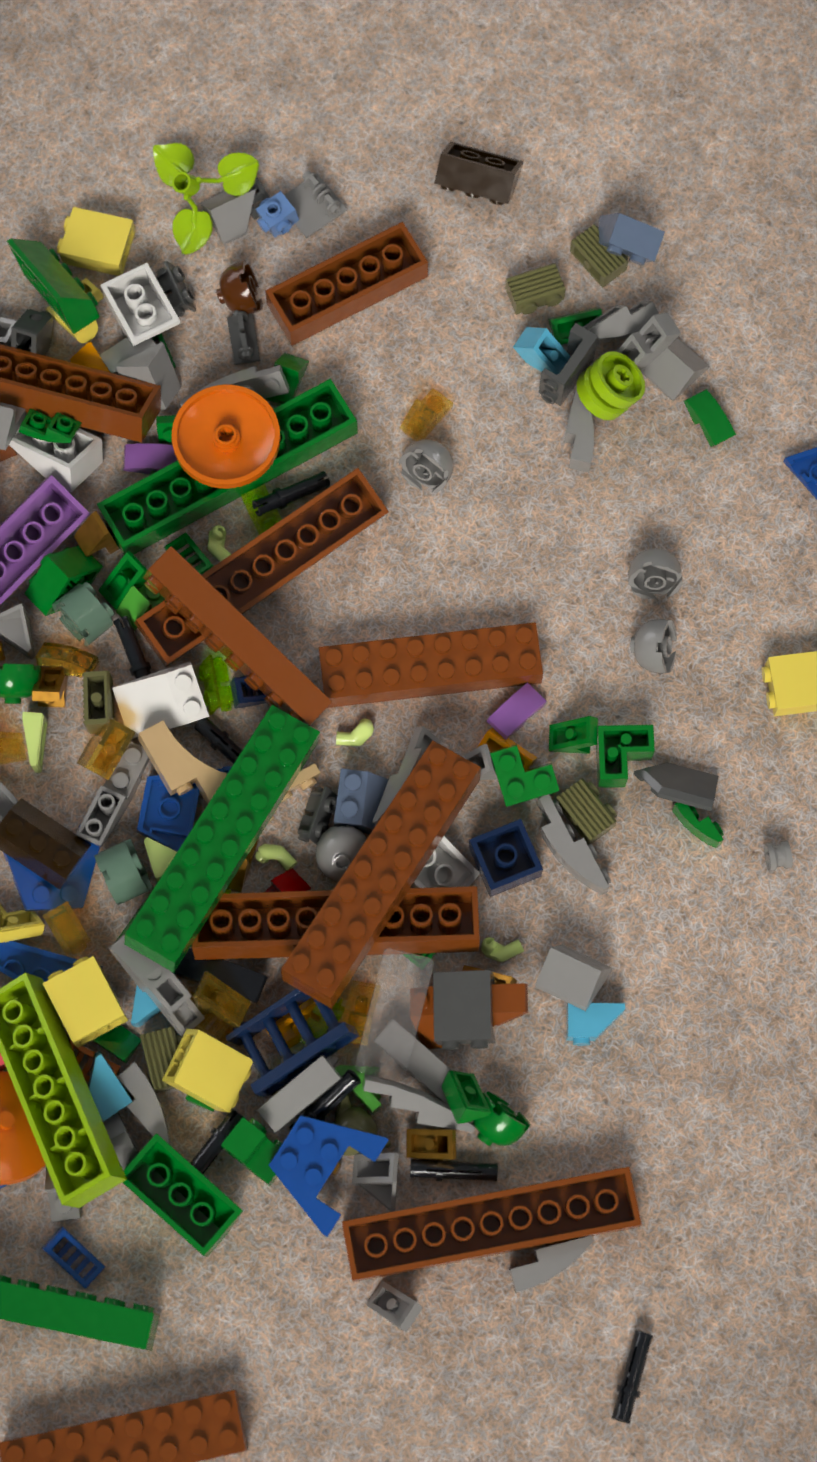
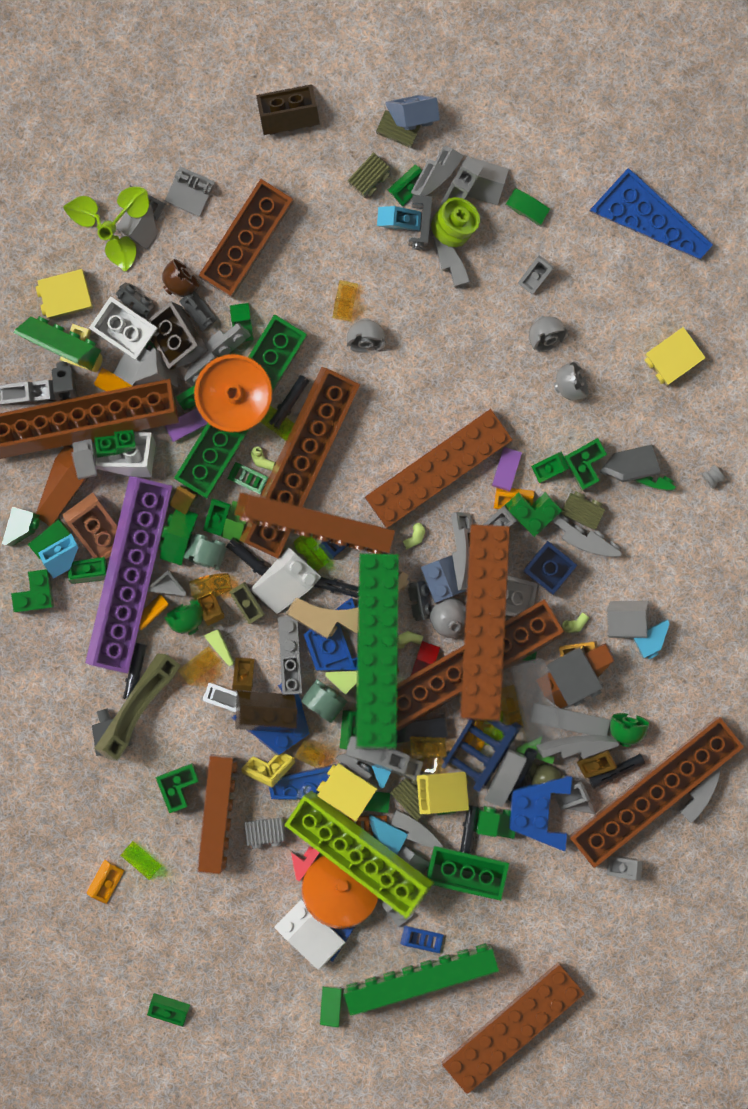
camera: 35 degrees left, 15 degrees up
(43, 788) = (243, 674): none -> pearl gold slope
(106, 749) = (269, 632): clear yellow slope -> none
(114, 973) = (362, 770): none -> light grey slope
(198, 347) = (176, 336): none -> dark brown slope
(276, 215) = (179, 210): medium blue brick -> none
(464, 1097) = (603, 728): green slope -> none
(678, 497) = (535, 274): none -> light grey slope

